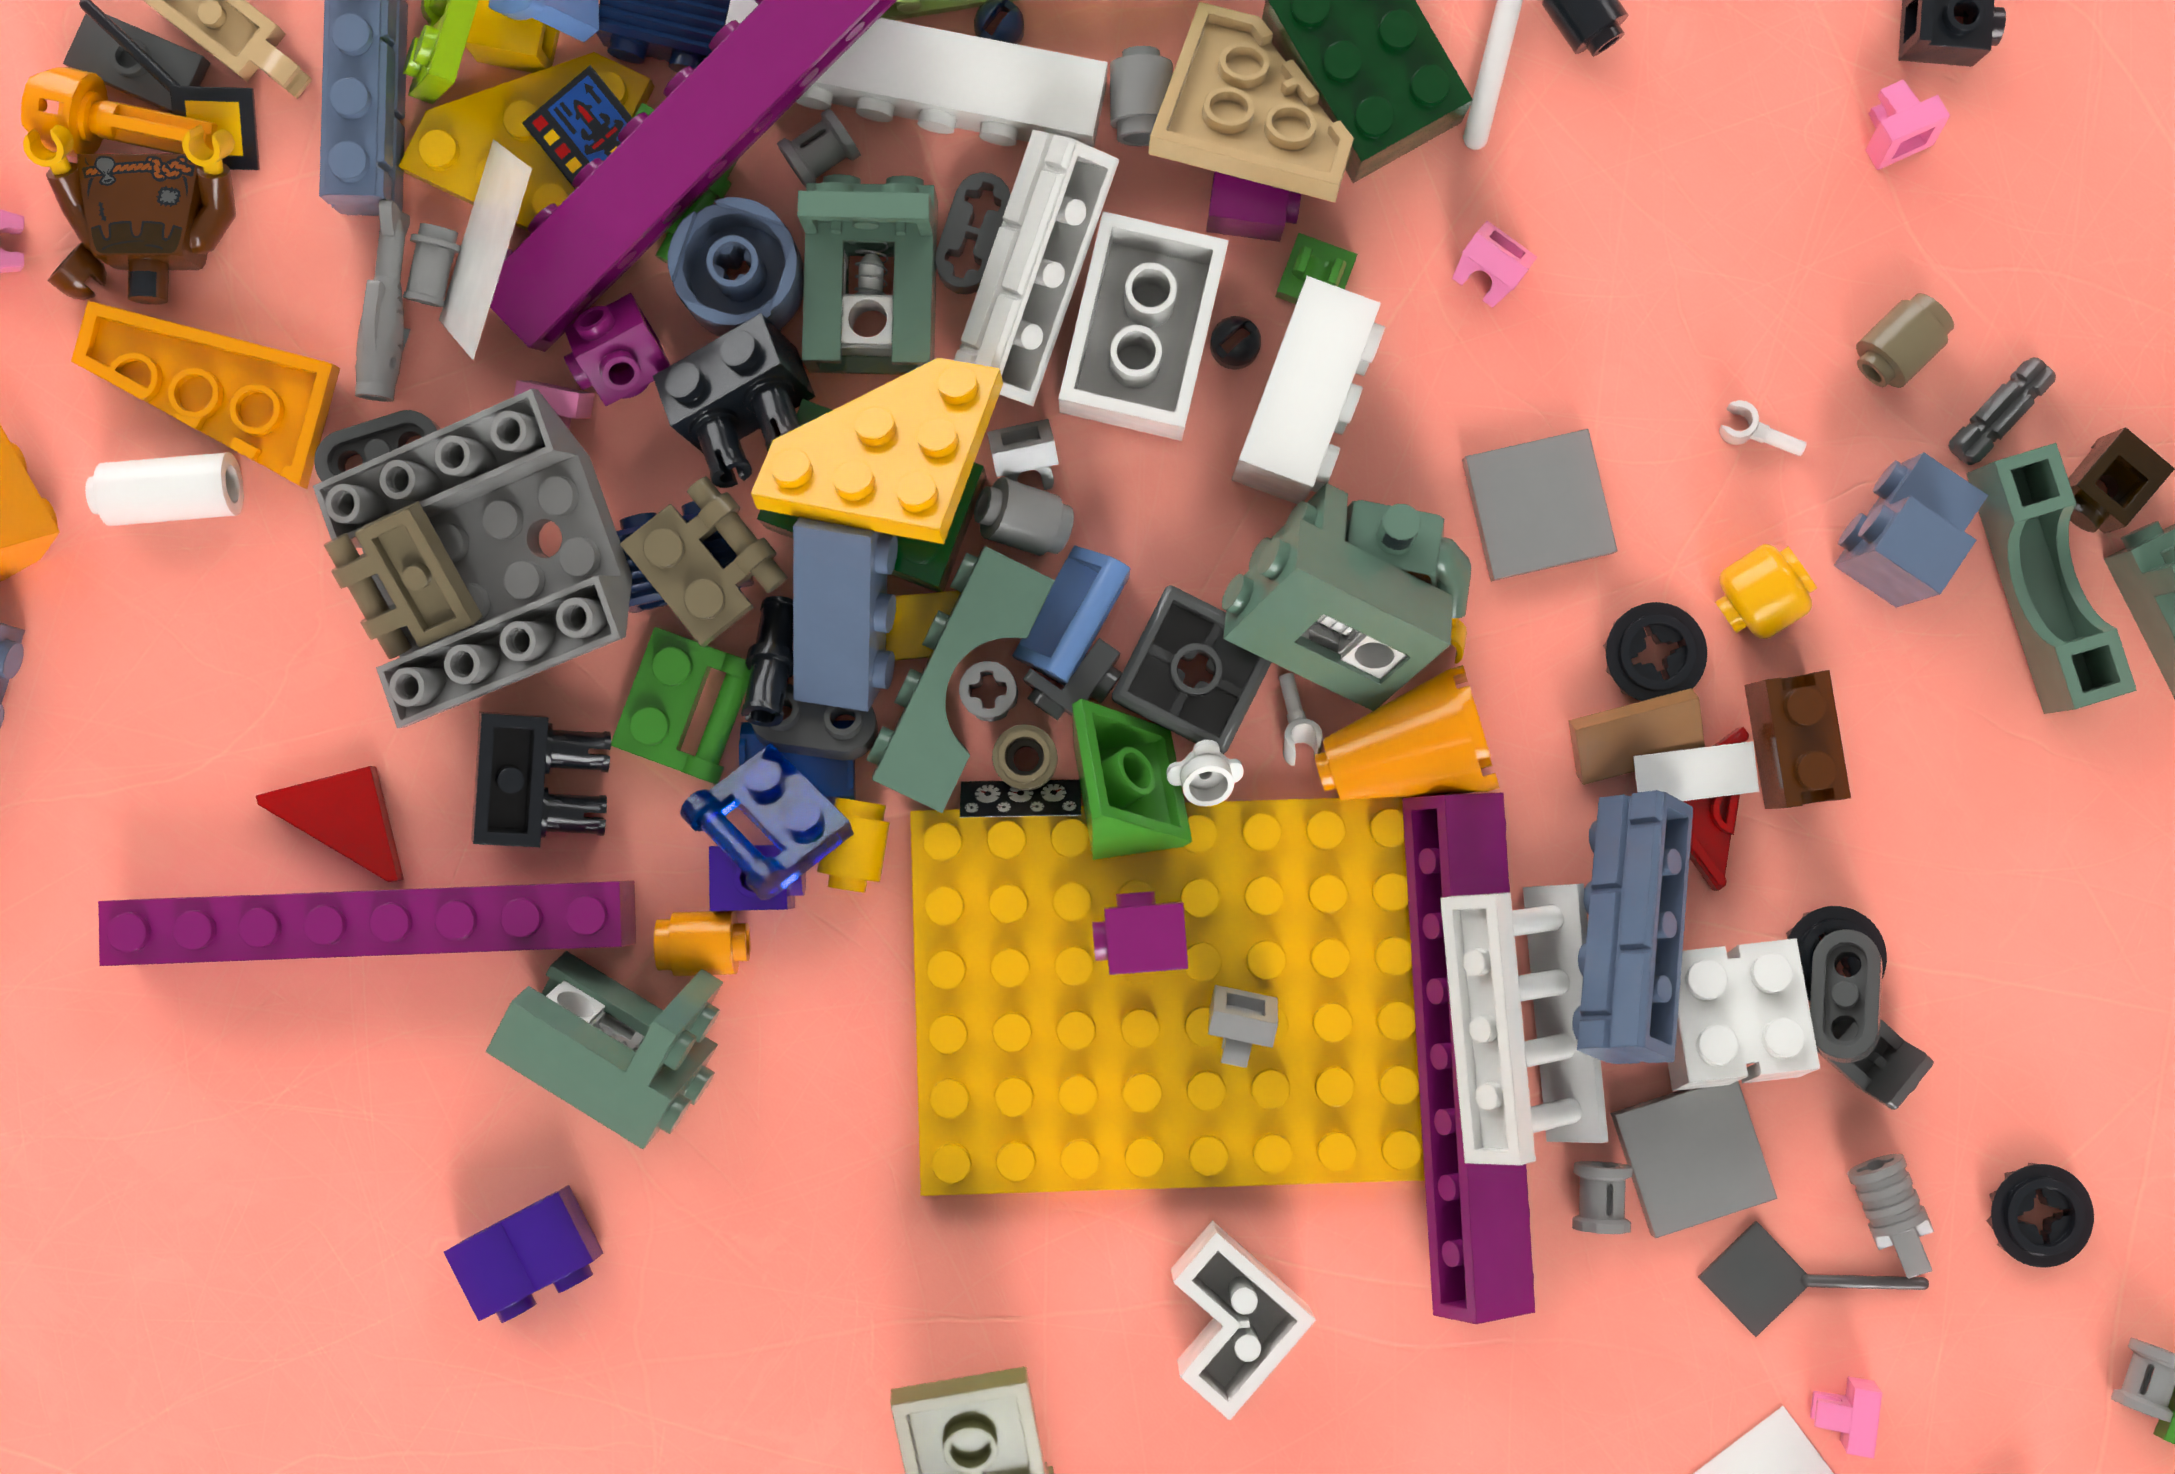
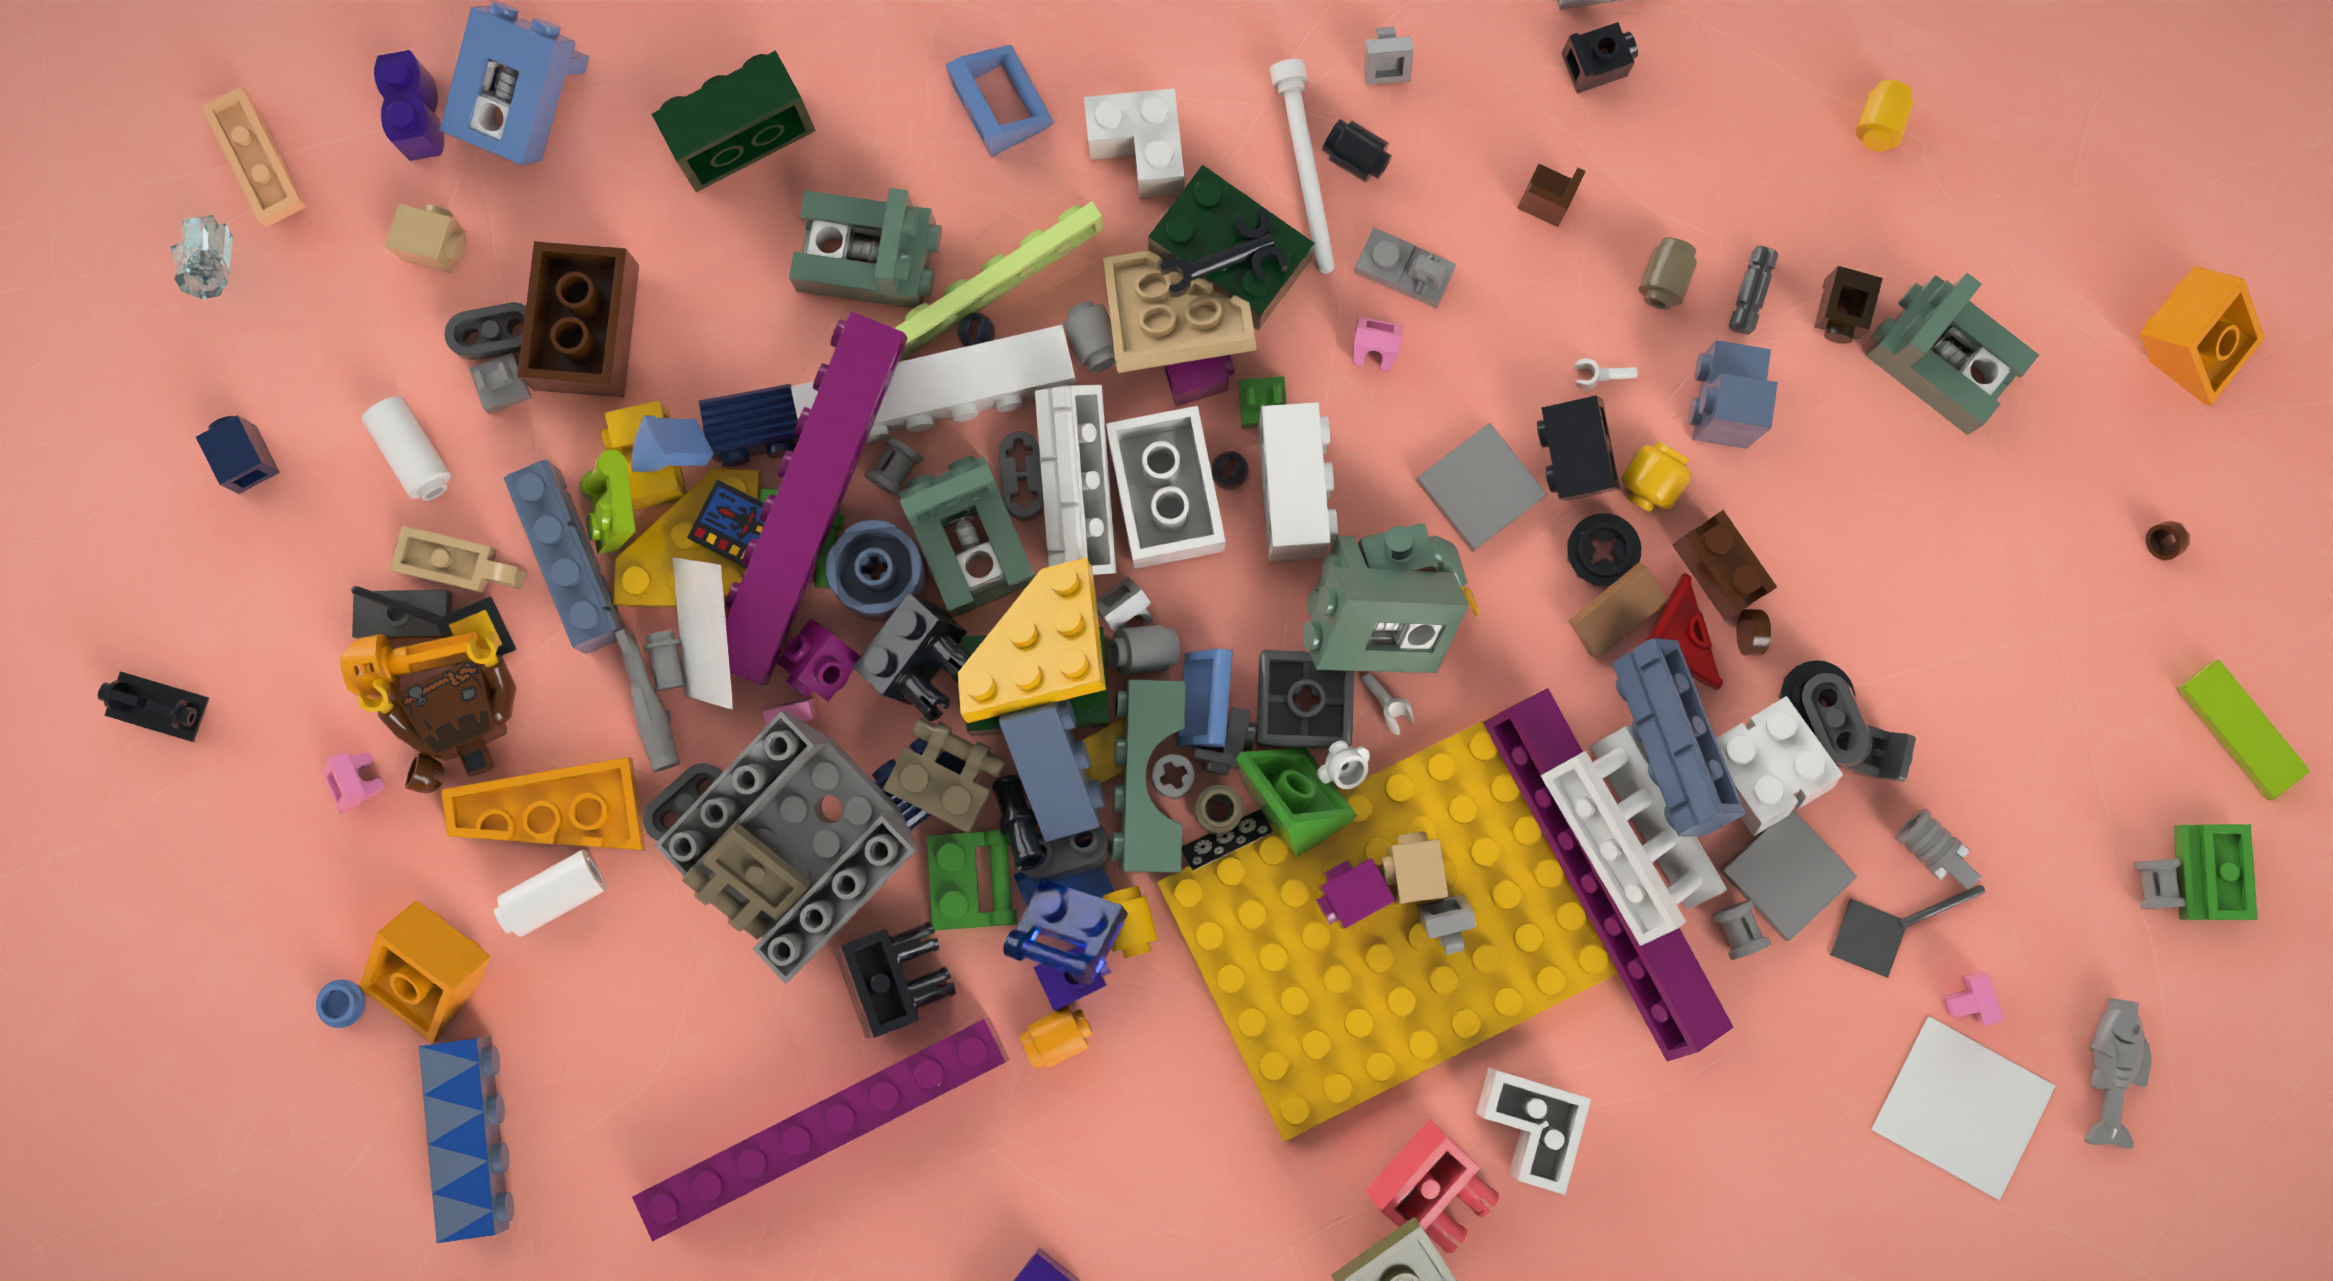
camera: 25 degrees left, 5 degrees down
(344, 814) = (769, 1062): red tile -> none
(611, 1047) = (1030, 1135): sand green brick -> none
(1068, 1323) = (1426, 1180): none -> coral brick
(1231, 941) = (1415, 869): none -> tan brick
(1396, 67) = (1256, 245): none -> black bar
(1411, 746) = (1473, 684): light orange cone -> none
(1573, 185) = (1404, 268): none -> light grey hinge
(1684, 511) = (1578, 449): none -> black brick
(1699, 771) = (1670, 615): white sticker -> none
(1794, 840) = (1753, 632): none -> reddish brown tile
(1801, 172) = (1550, 194): none -> reddish brown panel
(1903, 124) = (1601, 134): bright pink tile -> none
(2062, 1233) = (2055, 813): black gear -> none
(2066, 643) = (1868, 422): sand green arch -> none

